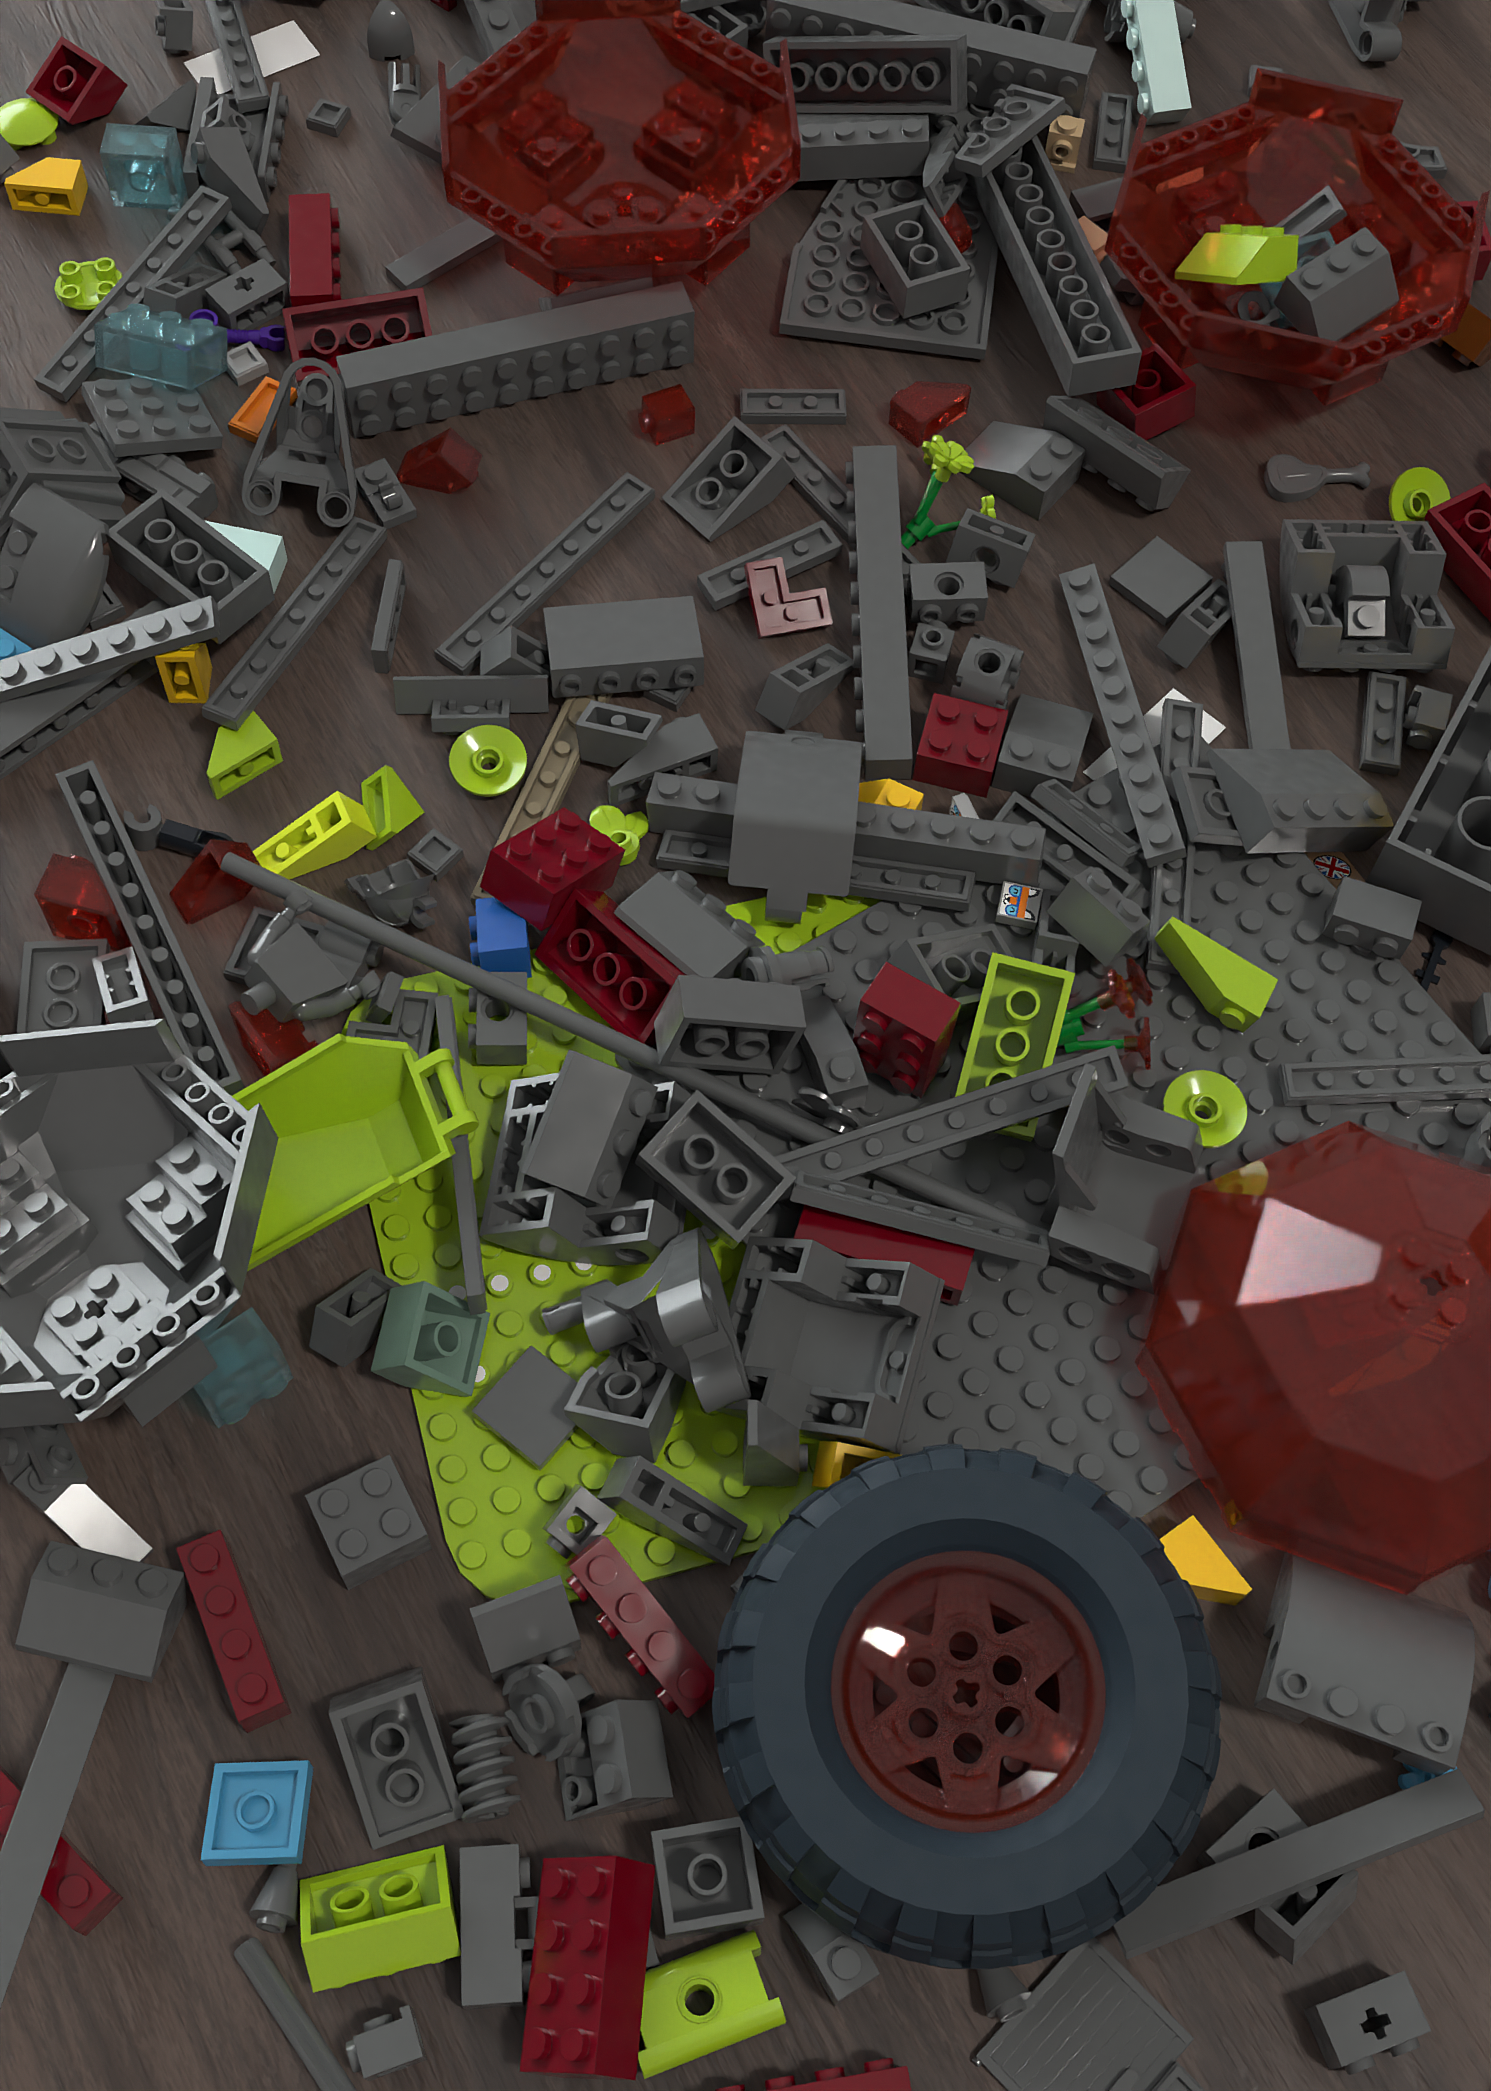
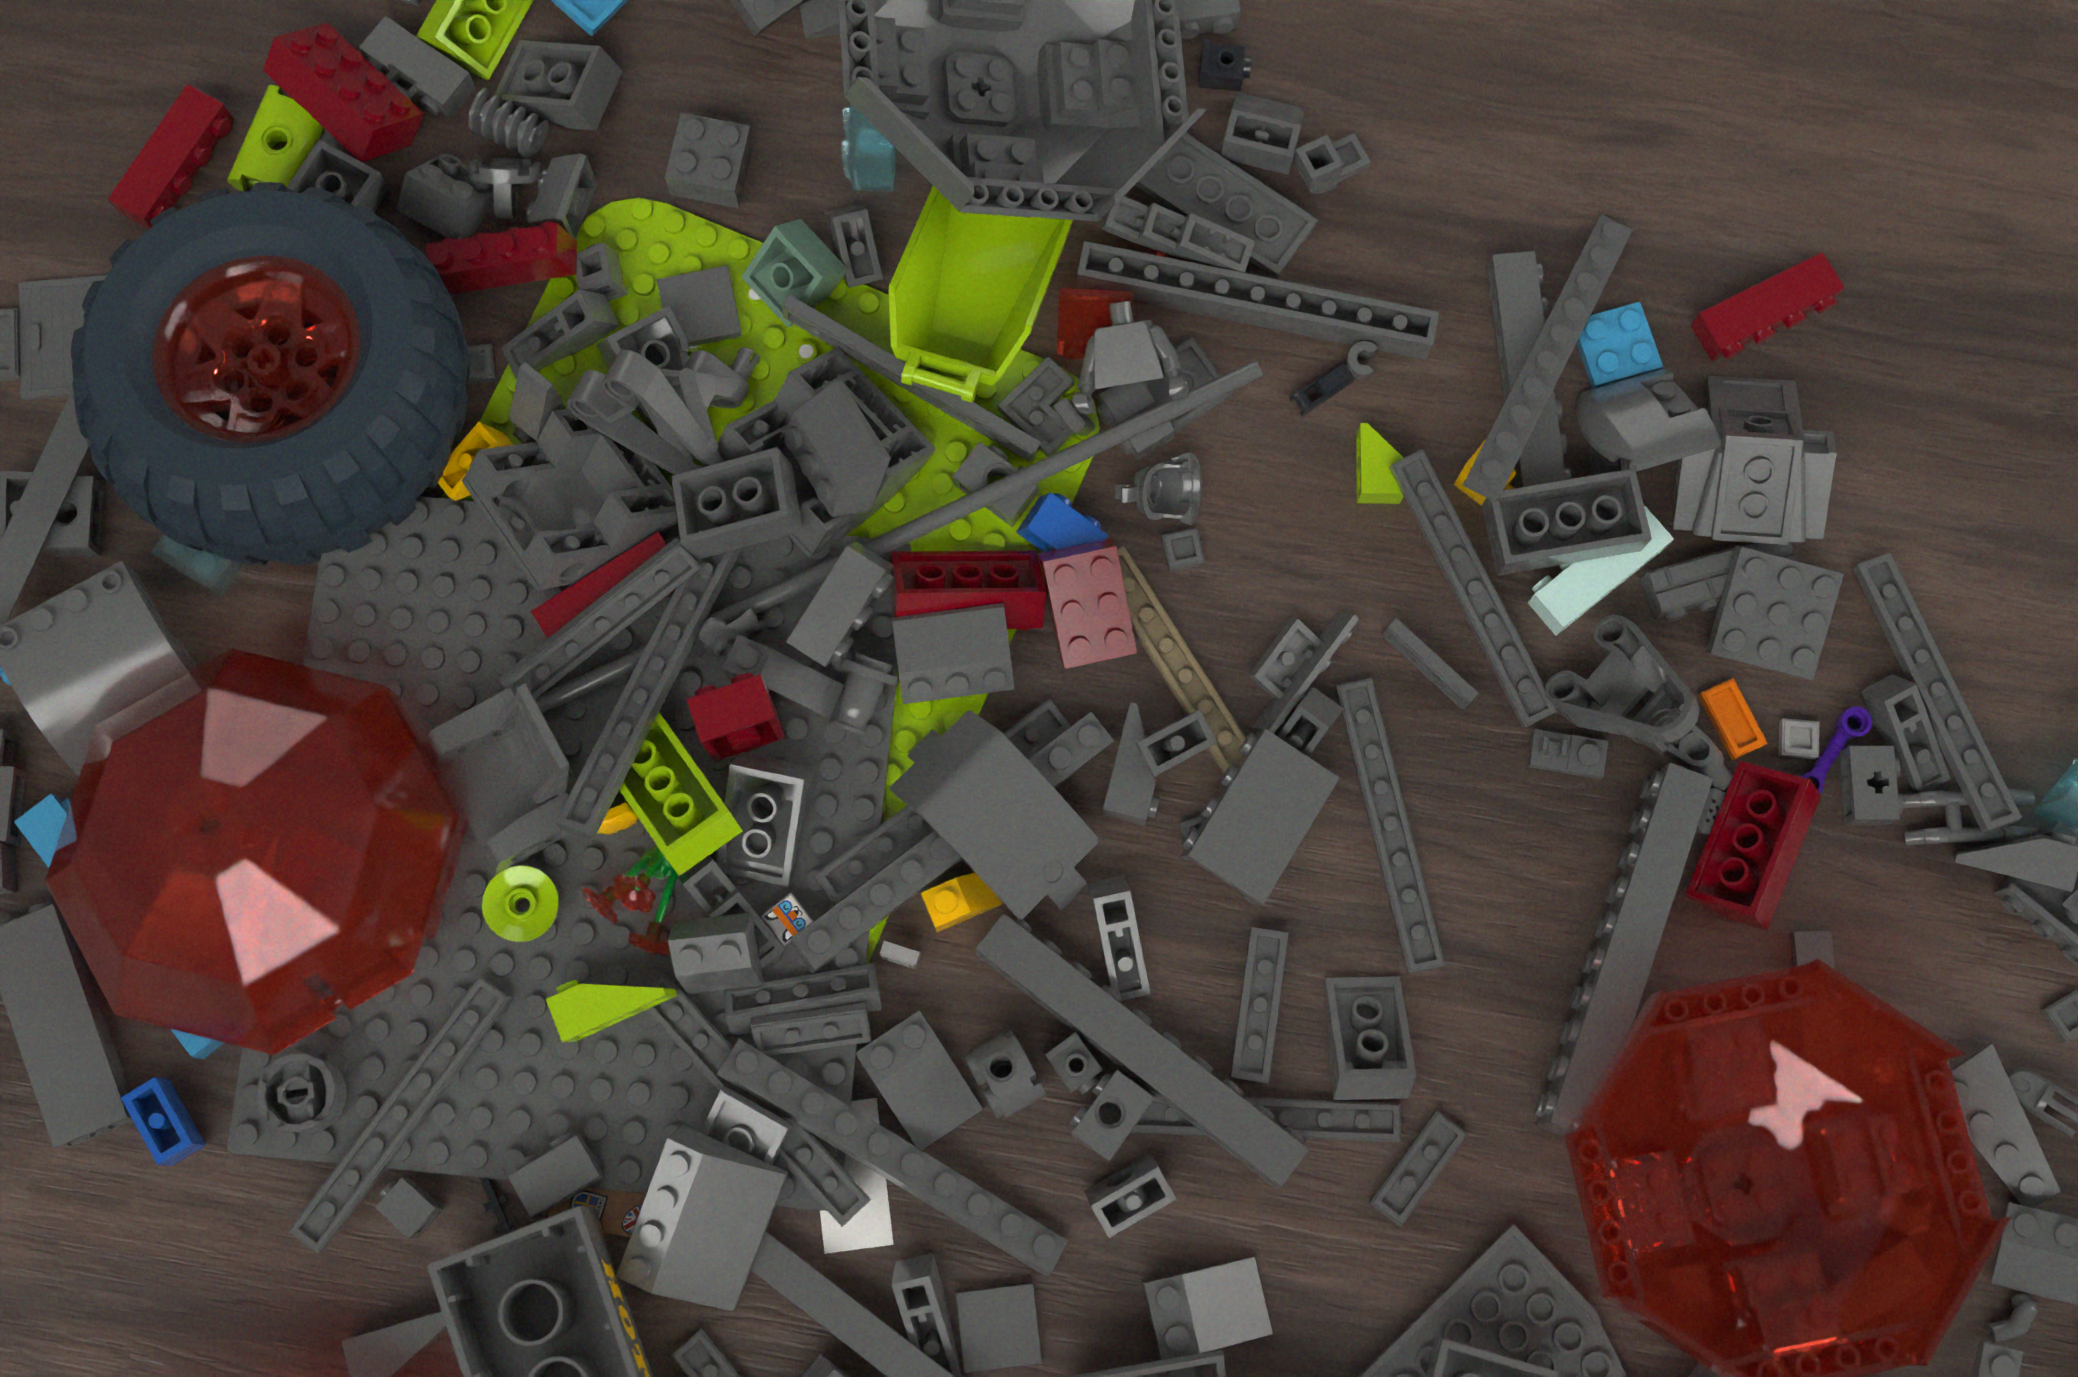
camera: 130 degrees right, 15 degrees up
(78, 902) = (1317, 262): clear red slope -> none
(86, 283) = (1982, 667): lime dish -> none
(161, 346) = (1844, 664): clear light blue brick -> none
(208, 889) = (1273, 390): clear red slope -> none
(233, 1631) = (707, 42): dark red brick -> none
(314, 249) = (1884, 874): dark red brick -> none
(318, 838) = (1255, 465): neon yellow slope -> none
(388, 805) = (1246, 542): lime slope -> none
(441, 464) = (1560, 813): clear red slope -> none
(483, 746) = (1226, 623): lime dish -> none
(621, 829) = (1104, 690): lime plate -> none
(667, 415) = (1480, 1042): clear red brick -> none
(776, 609) = (1202, 973): plate -> none
(927, 409) = (1323, 1276): clear red slope -> none
(945, 460) = (1209, 1196): plant -> none
(960, 745) = (966, 1007): dark red brick -> none
(1204, 1564) = (253, 627): yellow slope -> none

